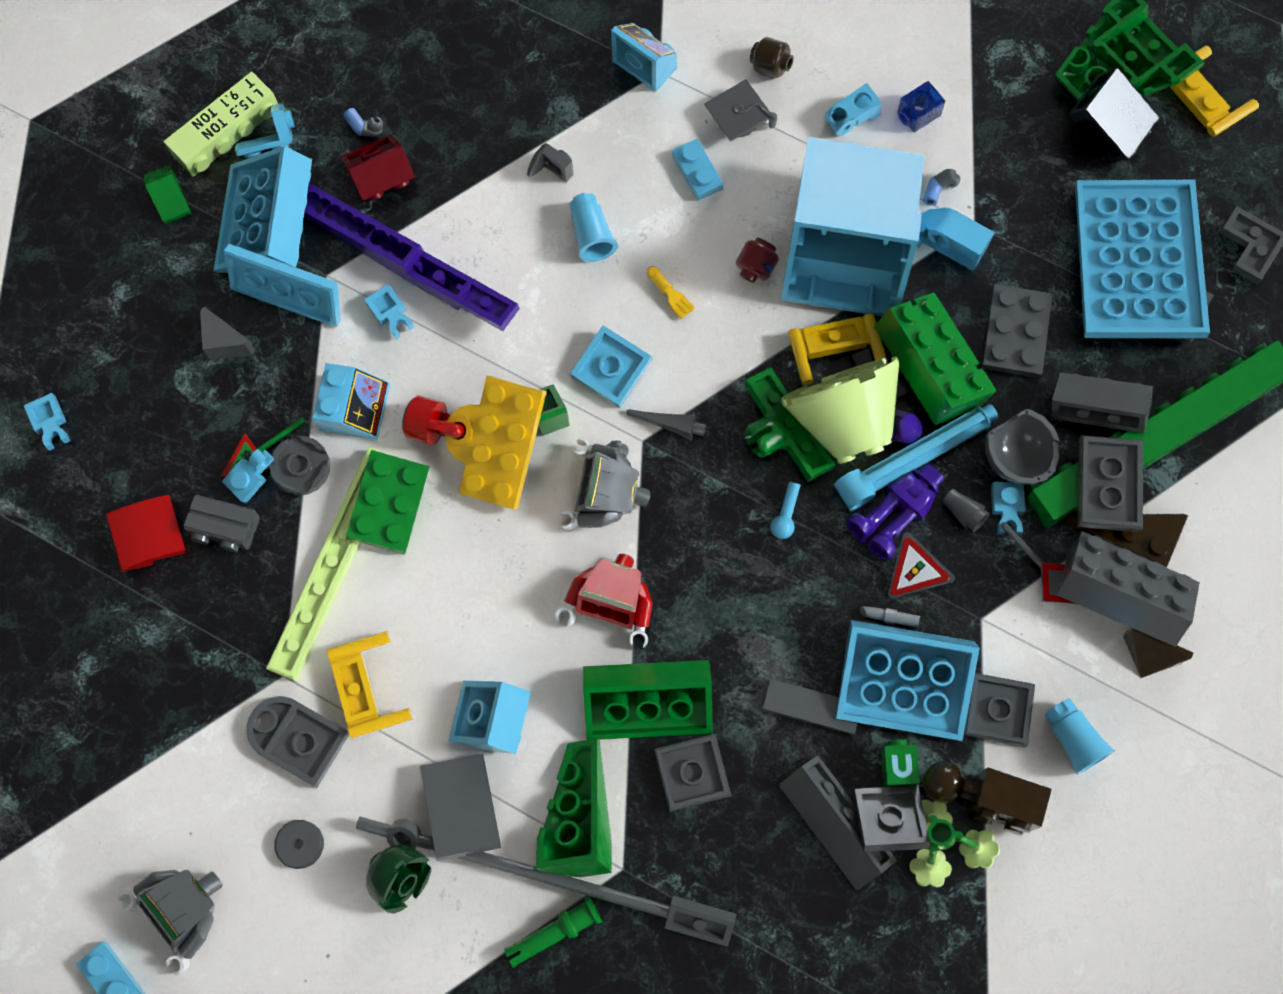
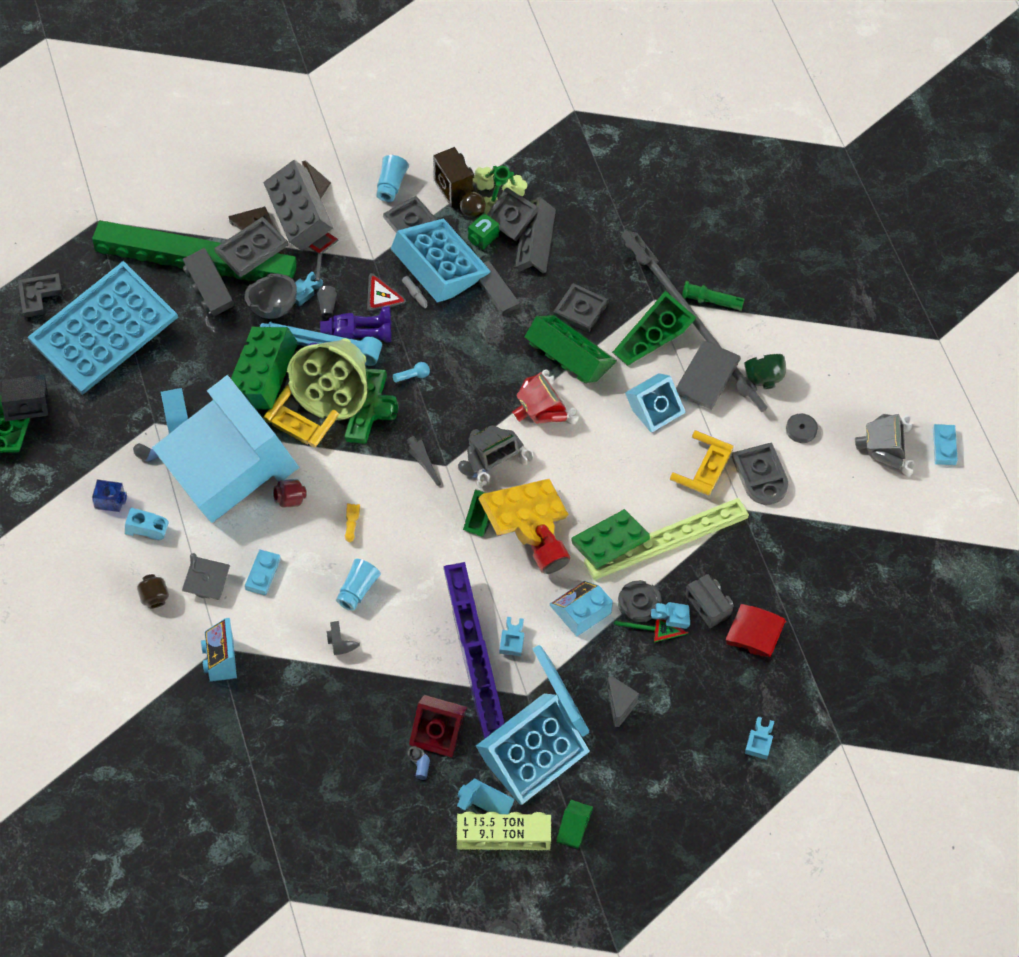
camera: 140 degrees left, 15 degrees down
(611, 366) = (423, 509): medium azure plate -> none
(1017, 331) = (200, 356): dark grey plate -> none

